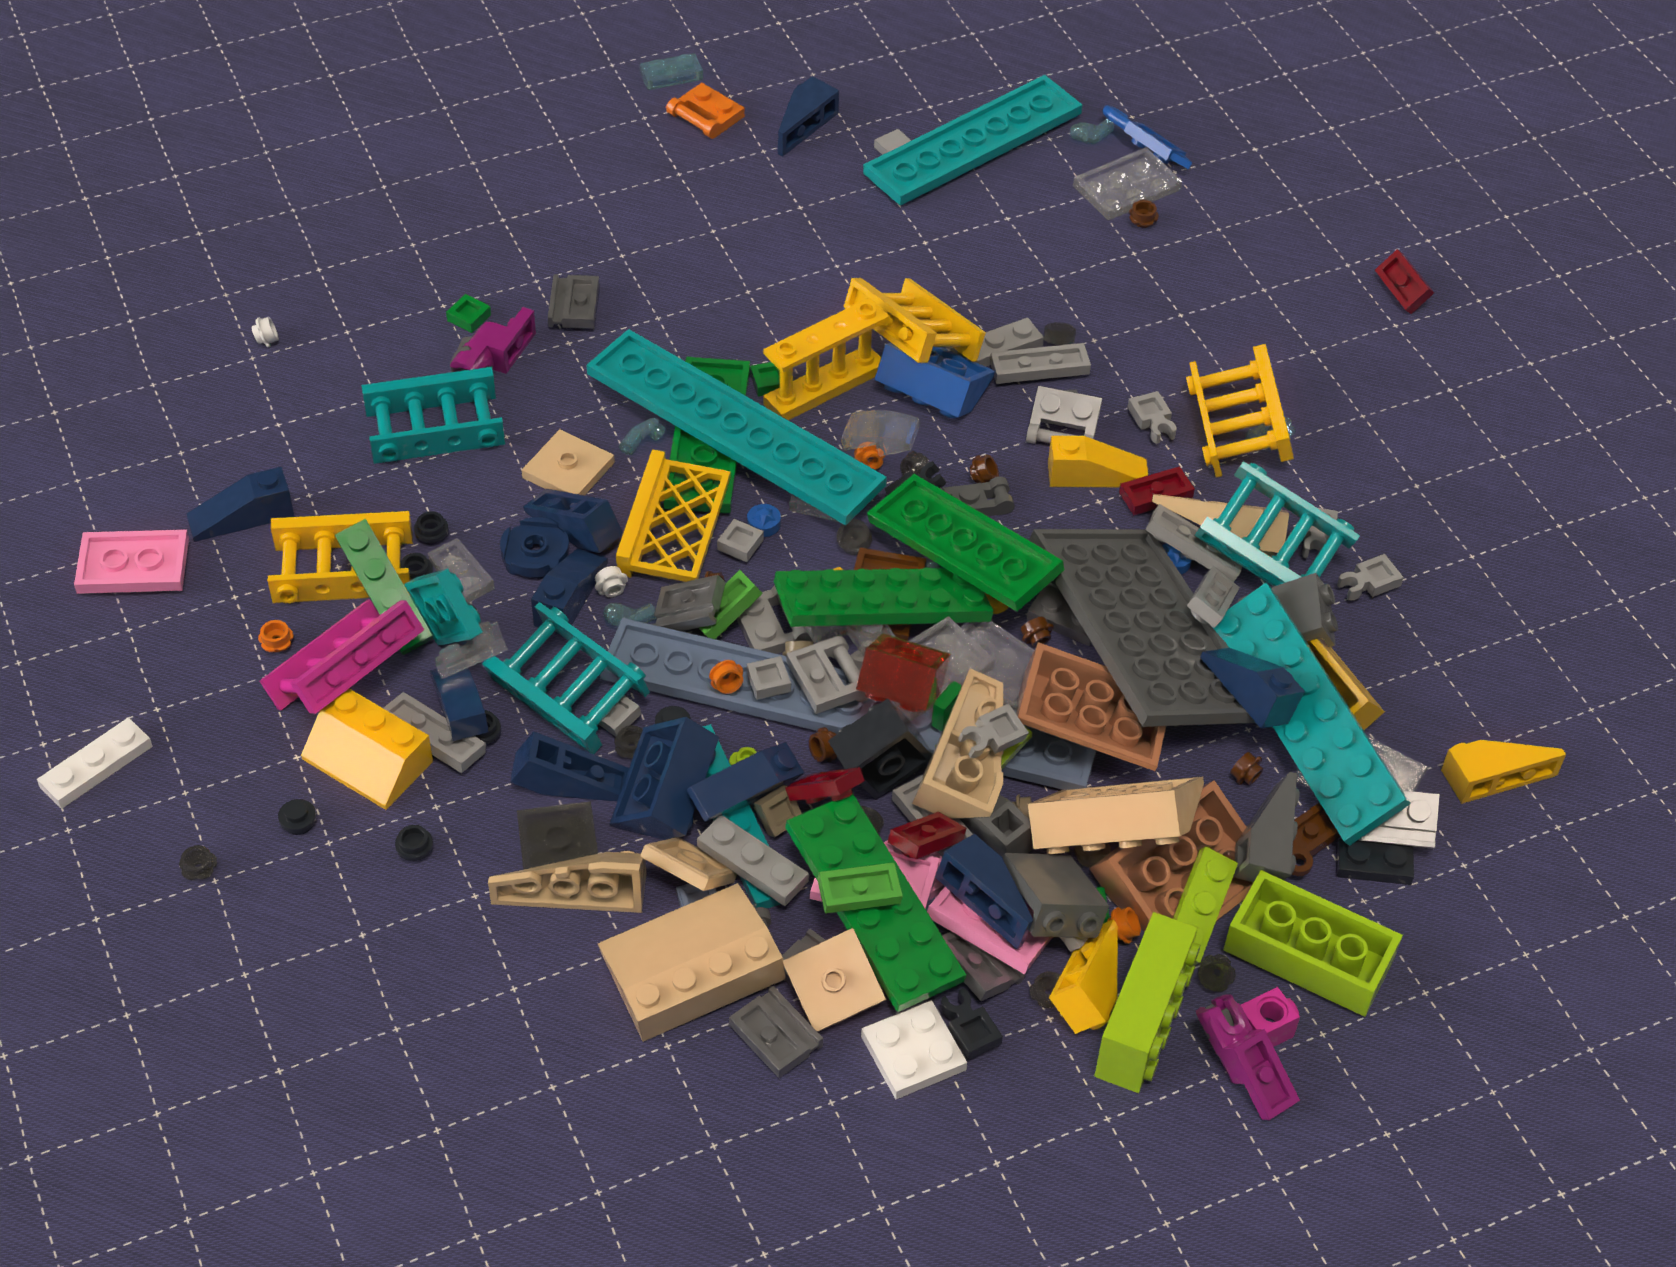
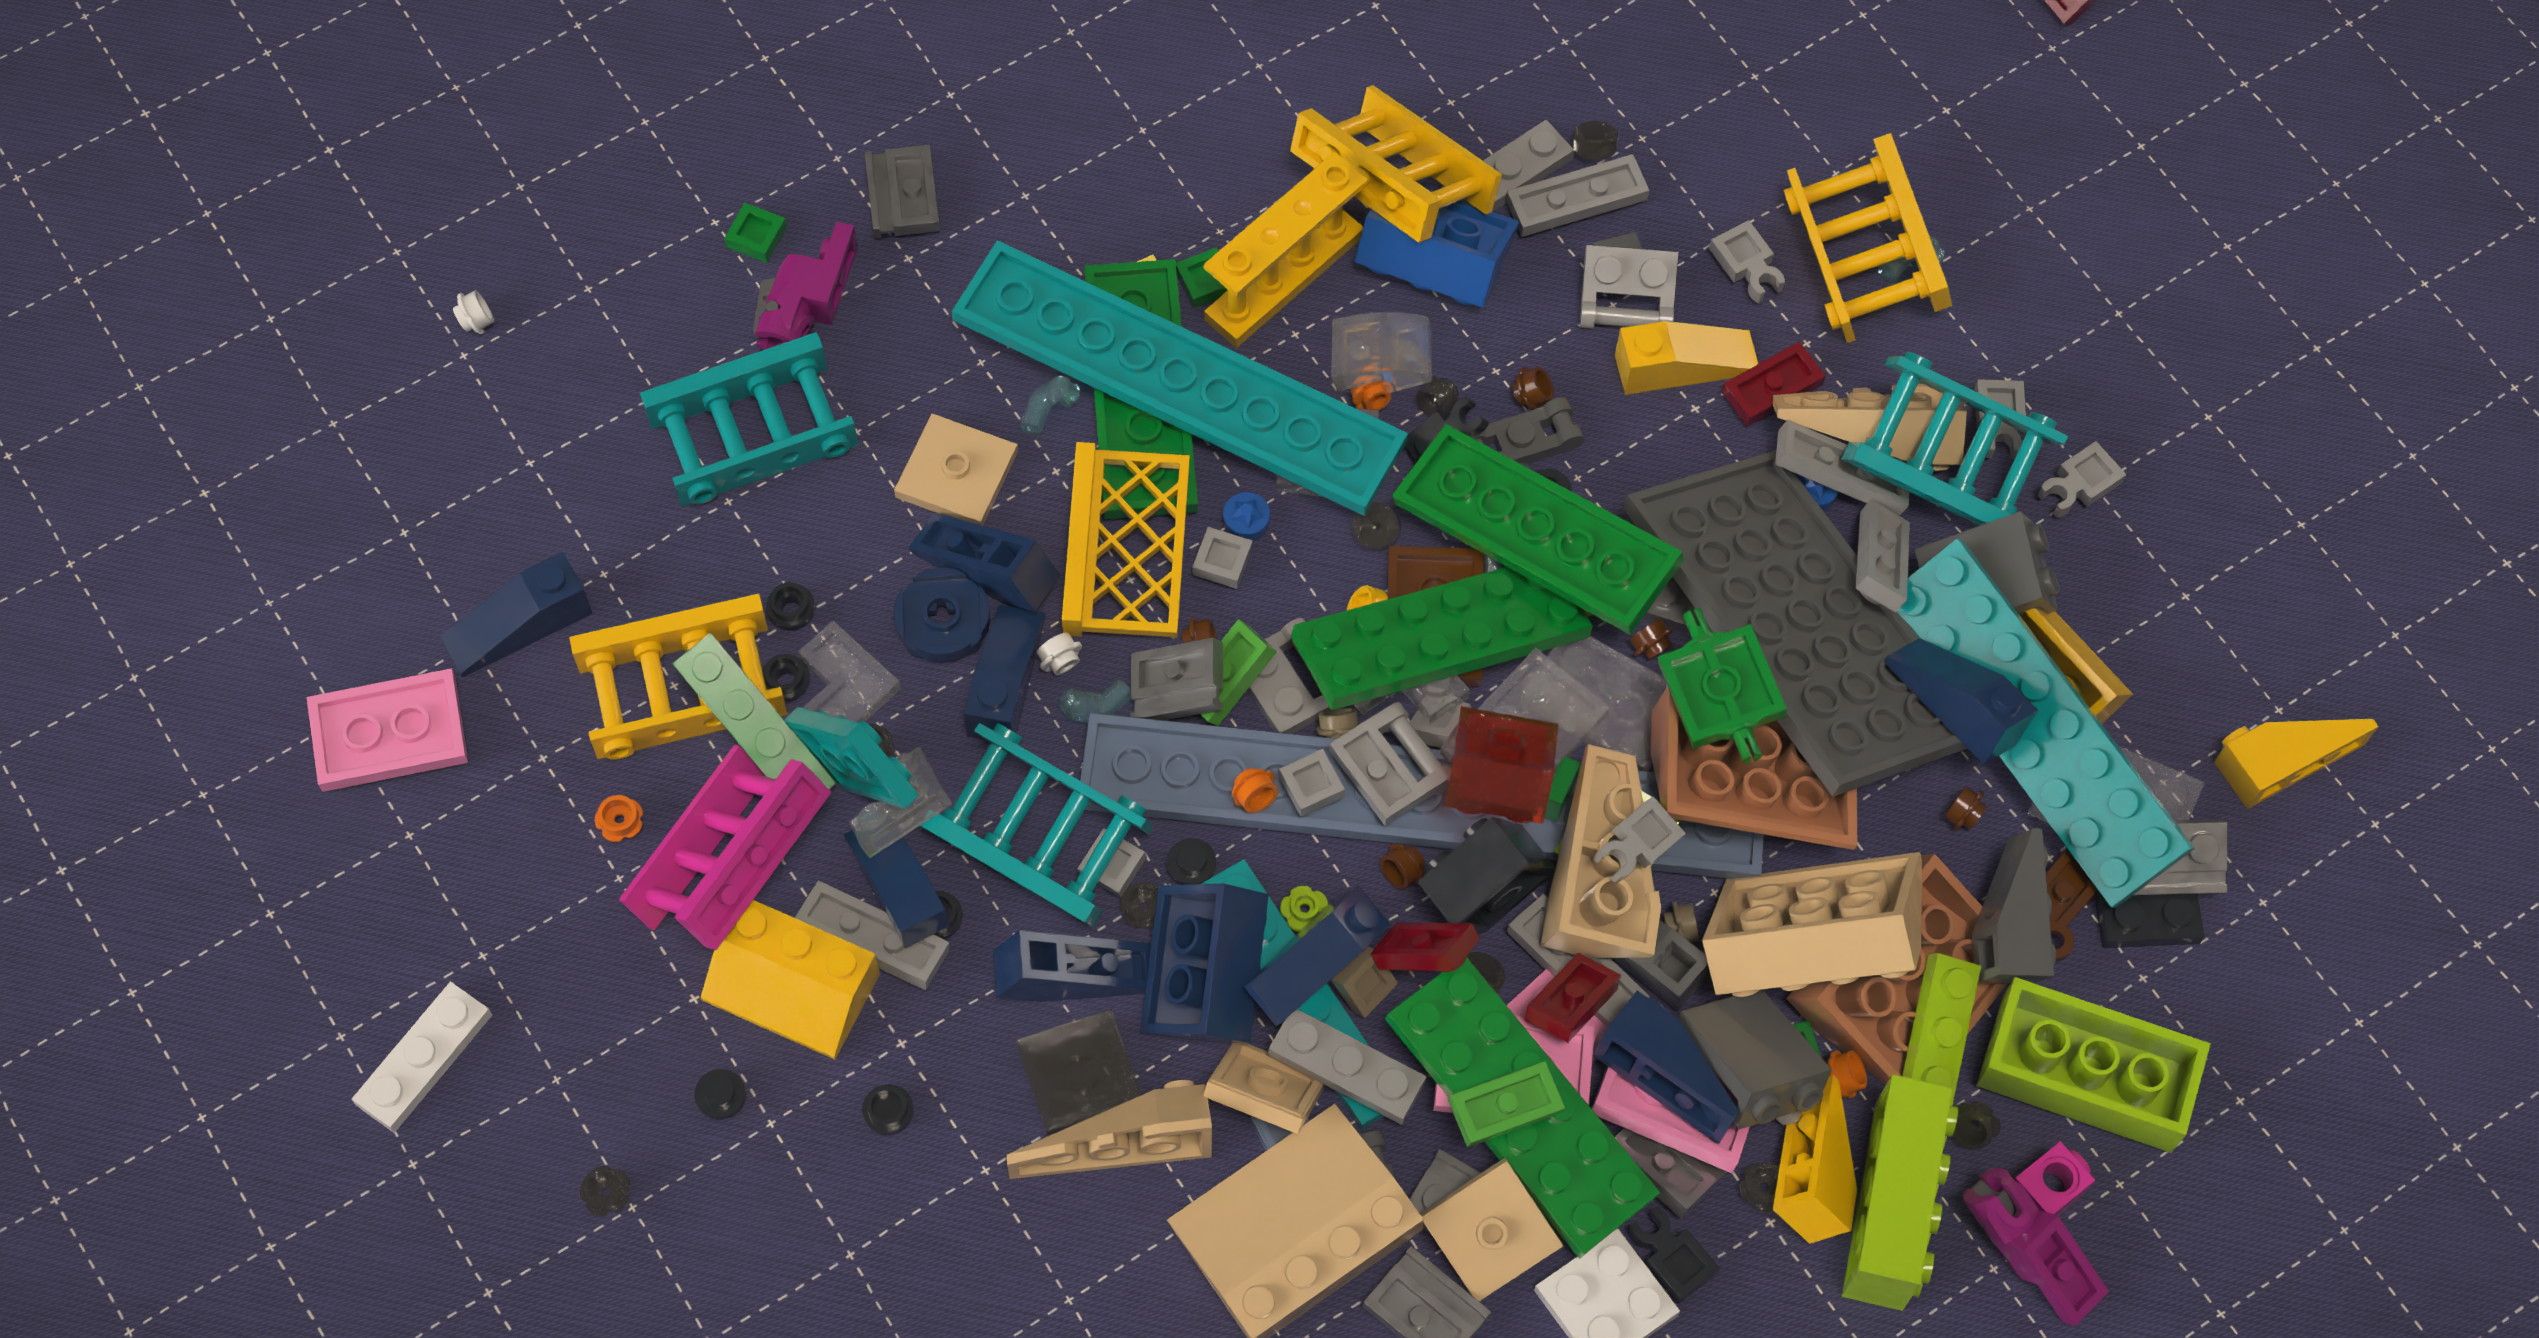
camera: 10 degrees left, 15 degrees up
(1074, 643) = (1722, 686): none -> green plate

